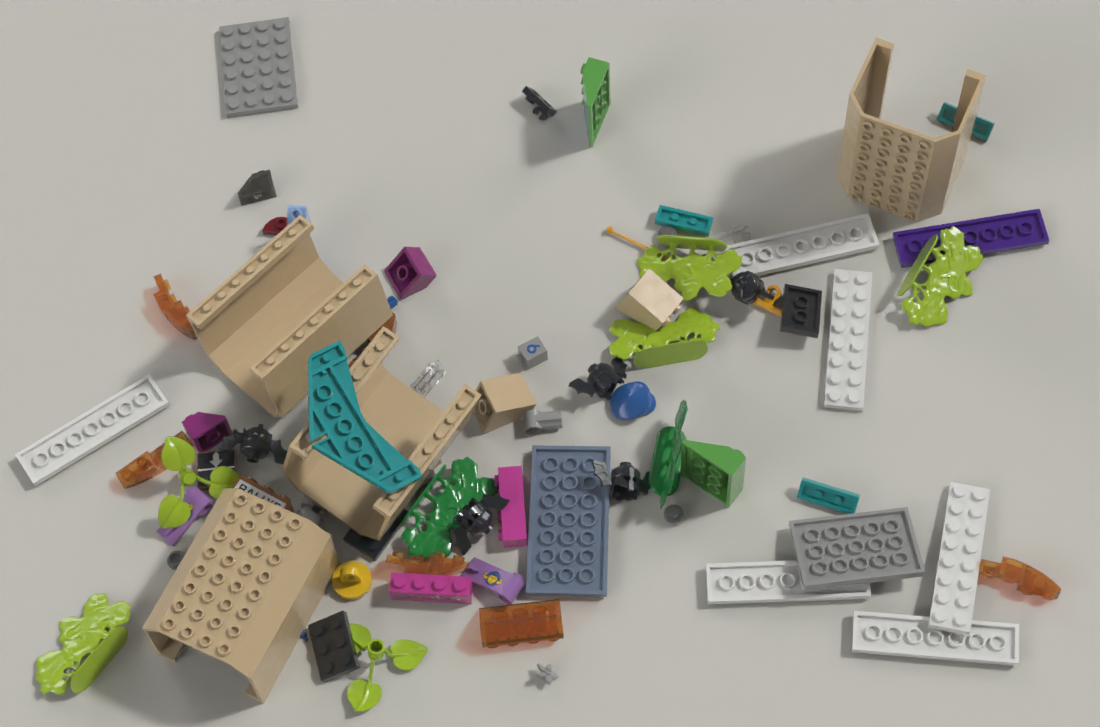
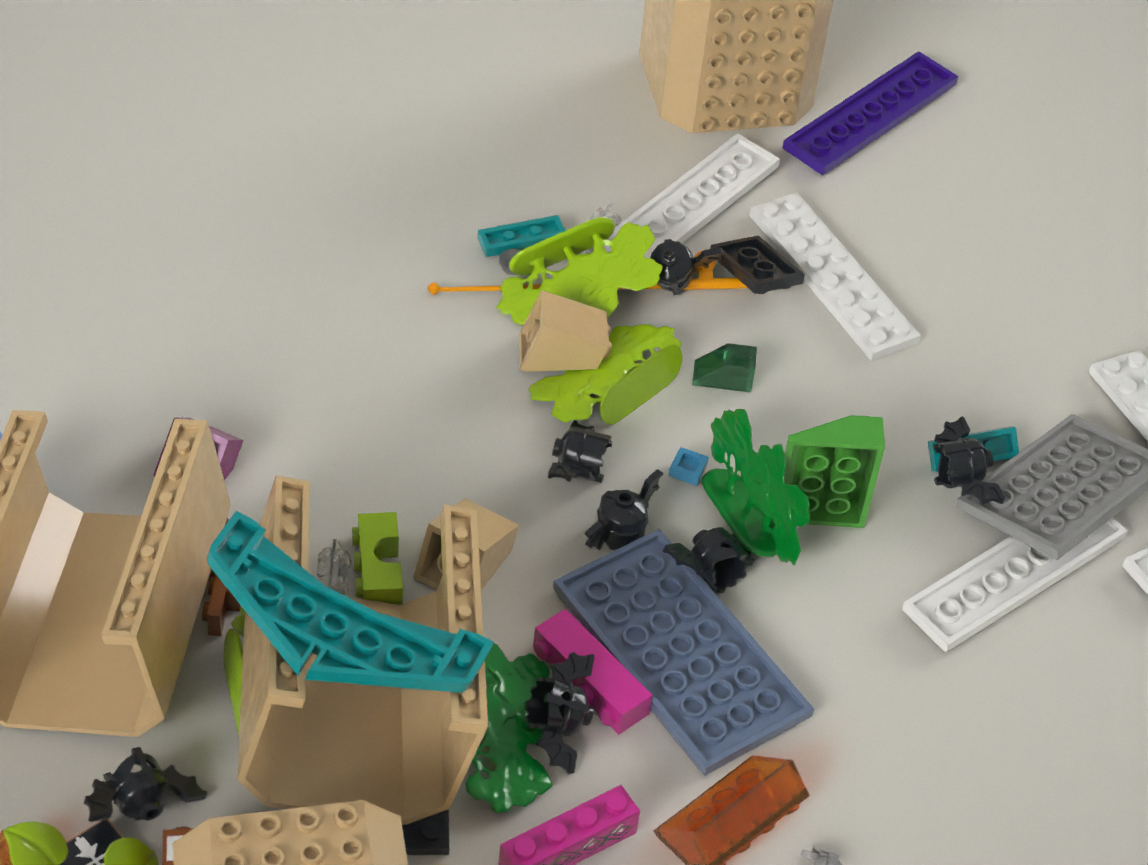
camera: 45 degrees left, 15 degrees down
(206, 430) = (45, 797): magenta slope -> none
(436, 564) = (542, 804): clear orange slope -> none
(460, 370) = (377, 540): none -> lime arch
(502, 583) = (663, 773): medium lavender door -> none
(532, 353) = (456, 471): light grey brick -> none
(537, 421) = (533, 550): light grey piece -> none
(543, 106) = (224, 187): black plate -> none
(594, 429) = (622, 516): none -> black helmet
(596, 95) = (301, 136): bright green slope -> none
(632, 401) = (635, 460): blue piece -> none
(659, 417) = (688, 466): none -> dark azure plate
(673, 514) = (808, 570): flat silver plate -> none
(730, 369) = (726, 368): none -> clear green slope
(807, 502) = (967, 463): none -> black helmet
(945, 277) = (883, 152): lime plant -> none

